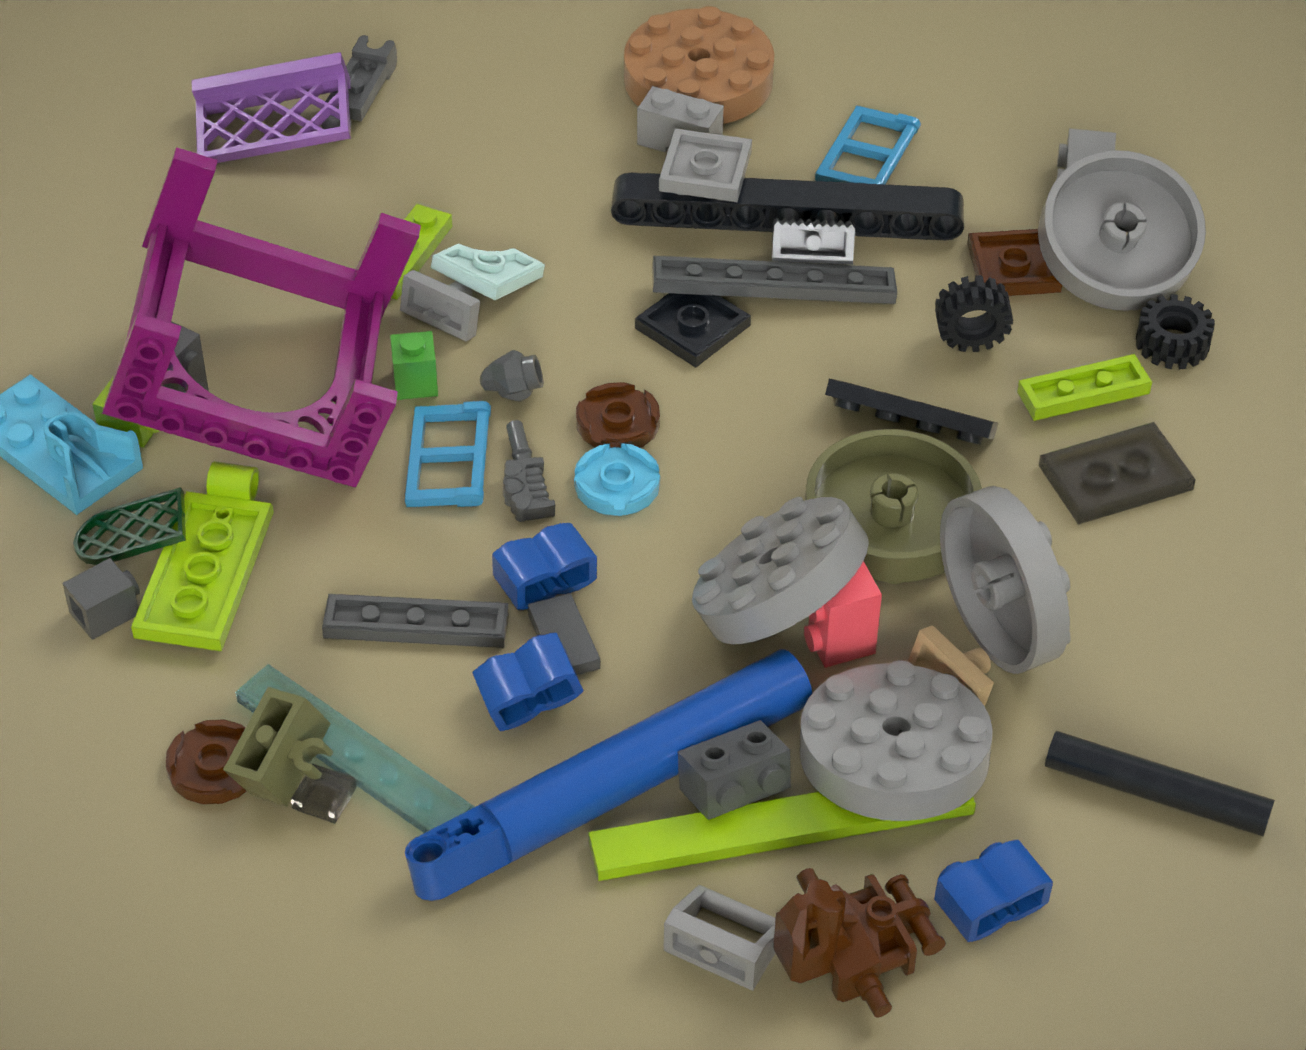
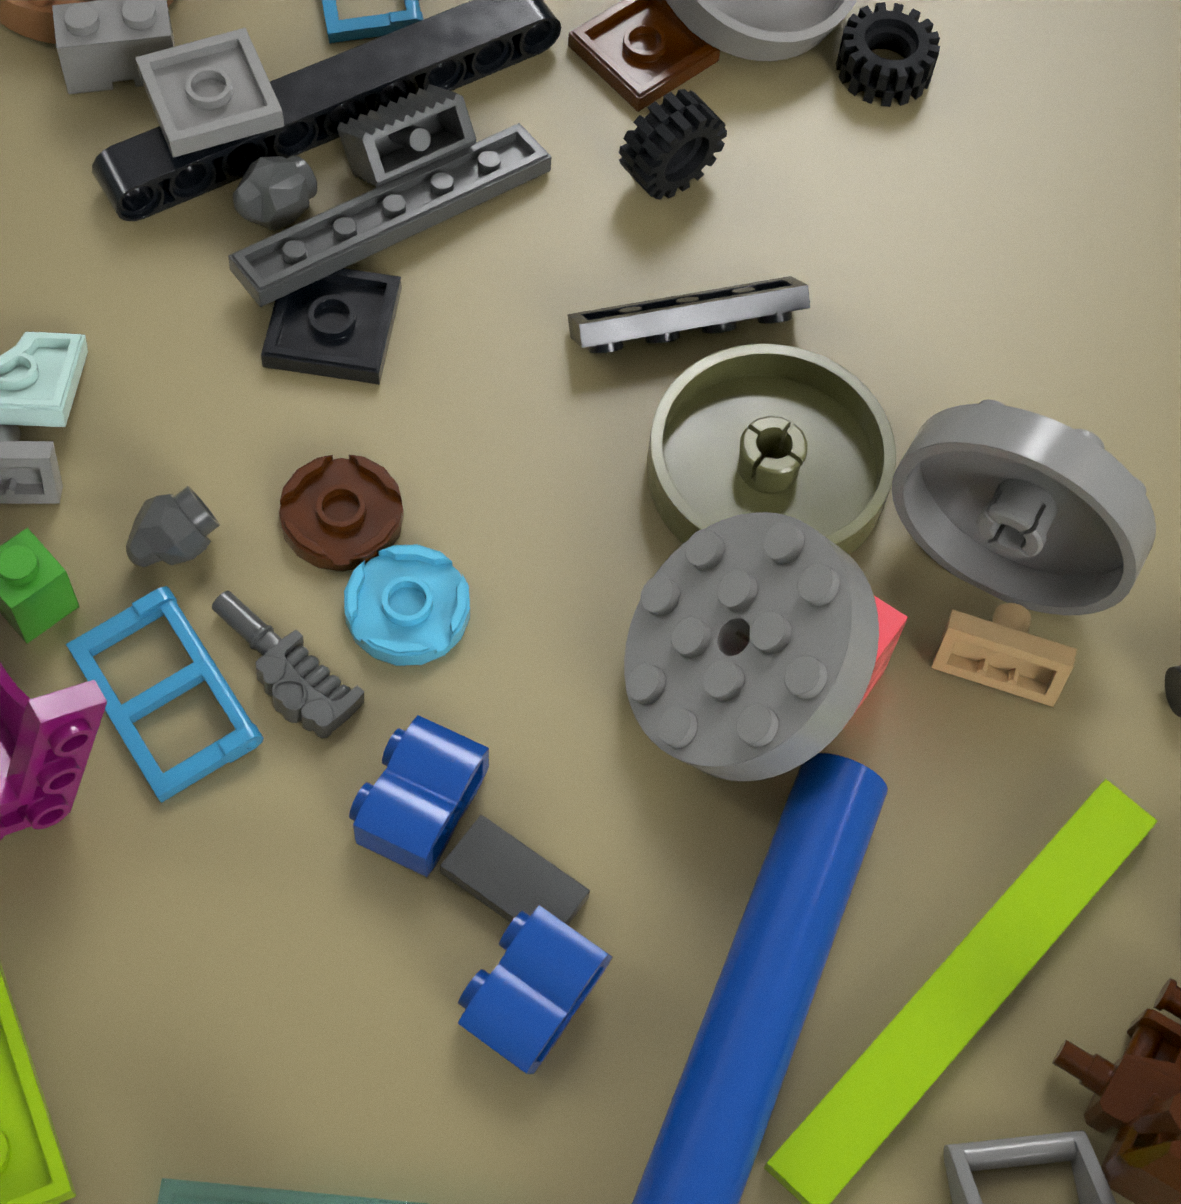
camera: 40 degrees left, 15 degrees up
(415, 620) = (304, 977): dark grey tile -> none
(710, 237) = (275, 191): none -> dark grey rock
(734, 769) = (880, 959): dark grey brick -> none
(895, 741) = (1013, 857): light grey piece -> none
(1084, 387) = (848, 179): lime plate -> none
(1116, 472) = (958, 274): clear smoke tile -> none

